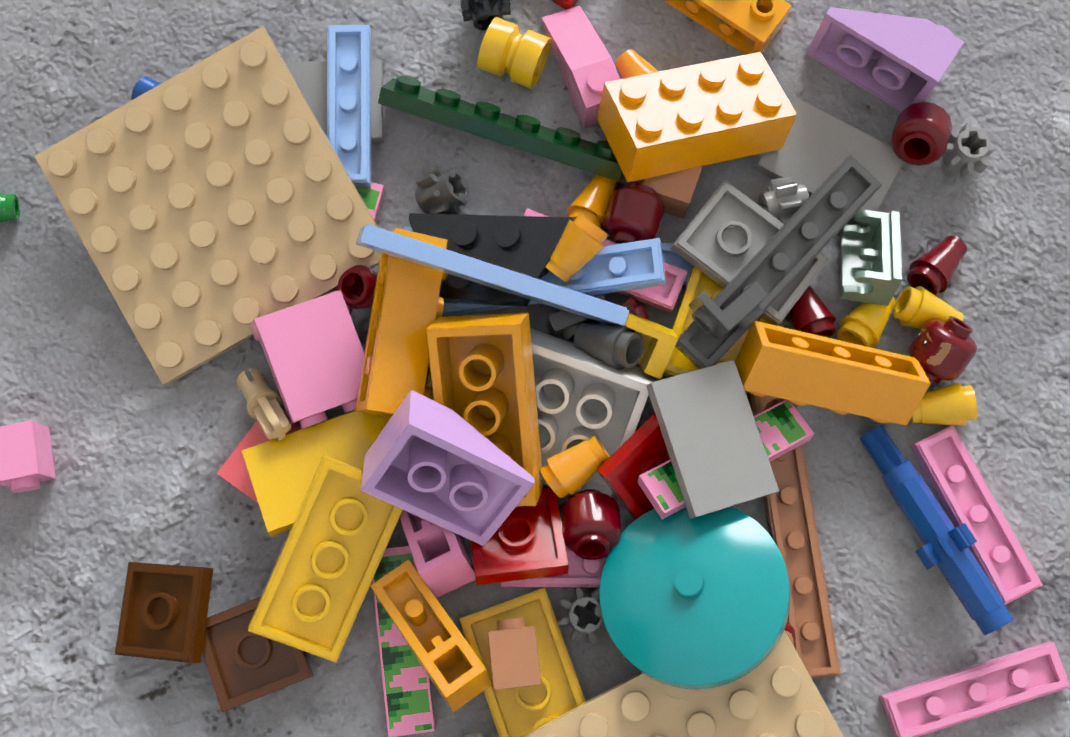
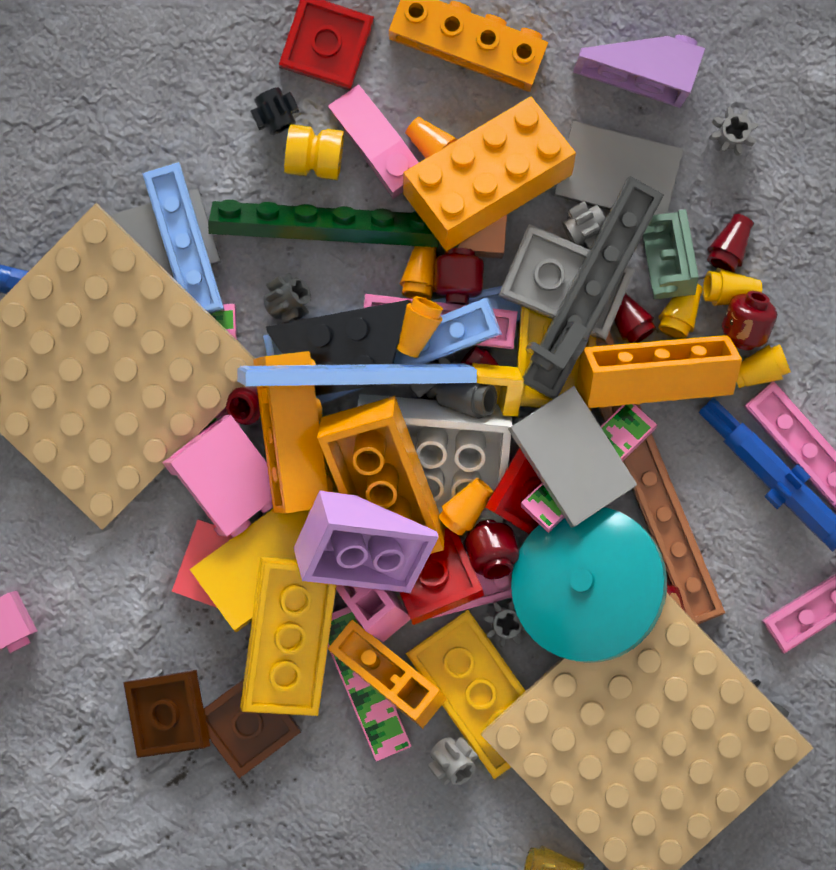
camera: 15 degrees left, 10 degrees up
(264, 404) = (194, 525): tan axle -> none
(514, 654) = (458, 671): nougat brick -> none
(921, 133) = (690, 129): dark red head -> none

